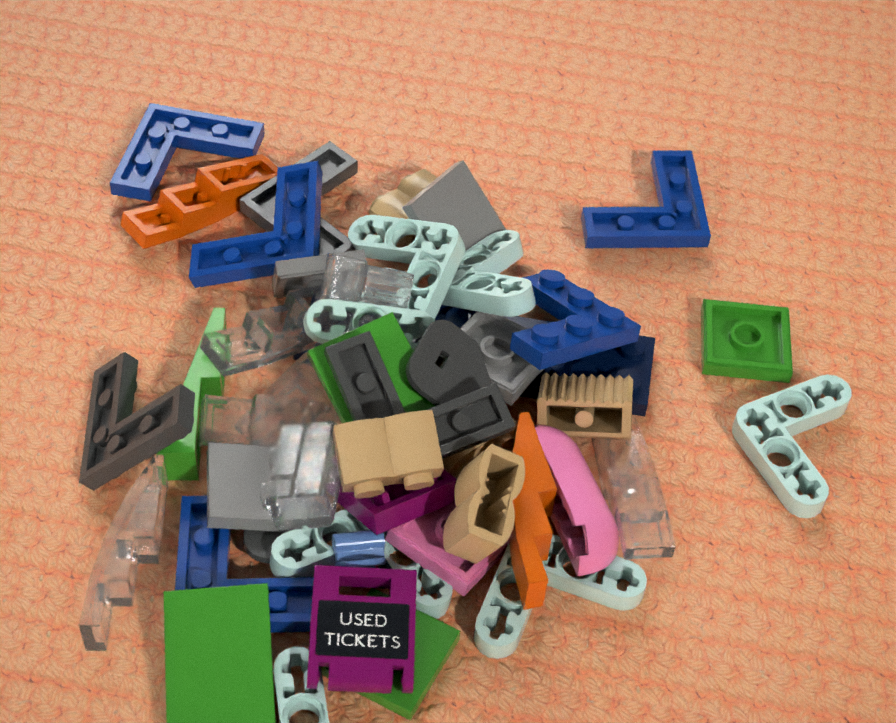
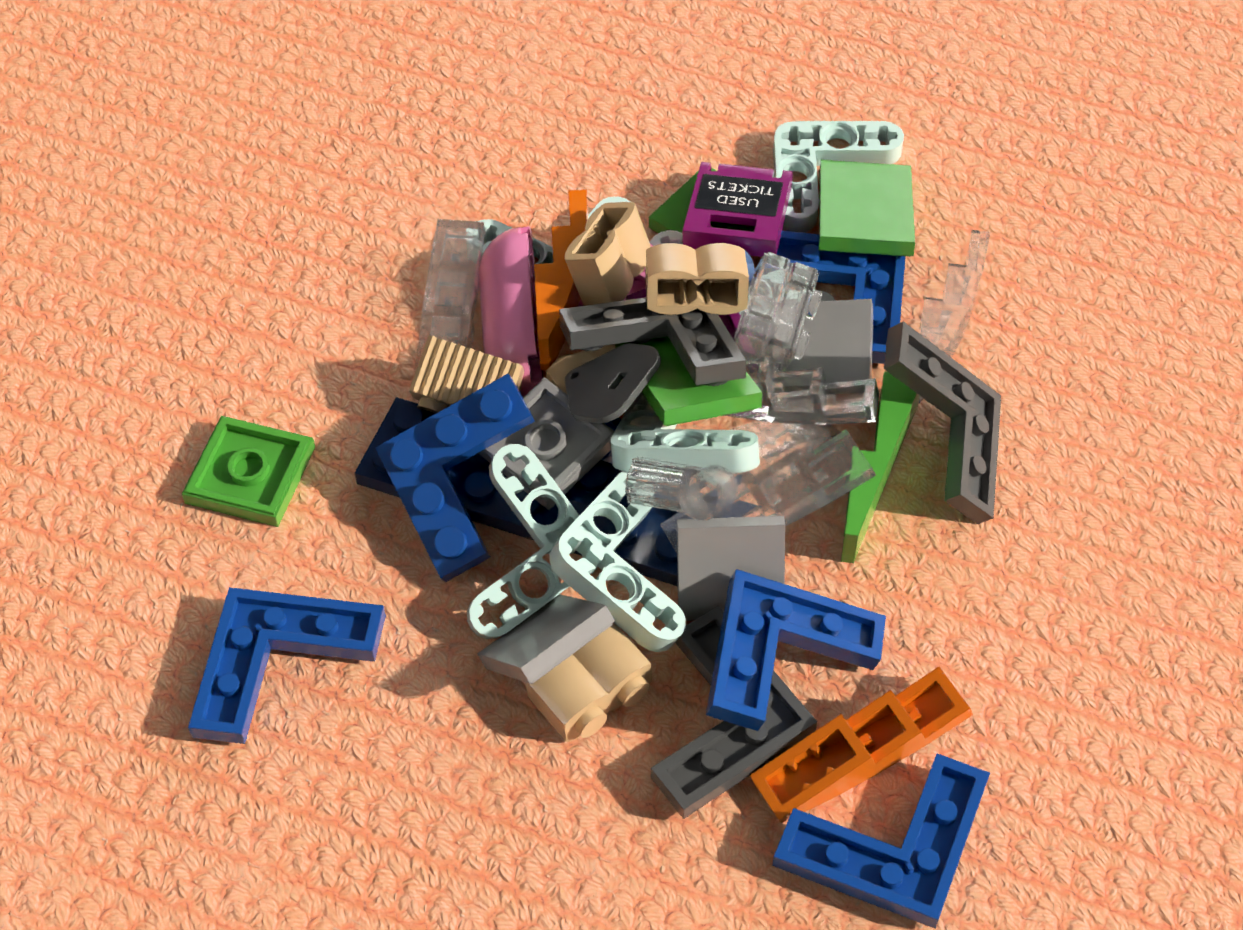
camera: 165 degrees left, 5 degrees up
(777, 437) = (266, 366): light aqua beam -> none

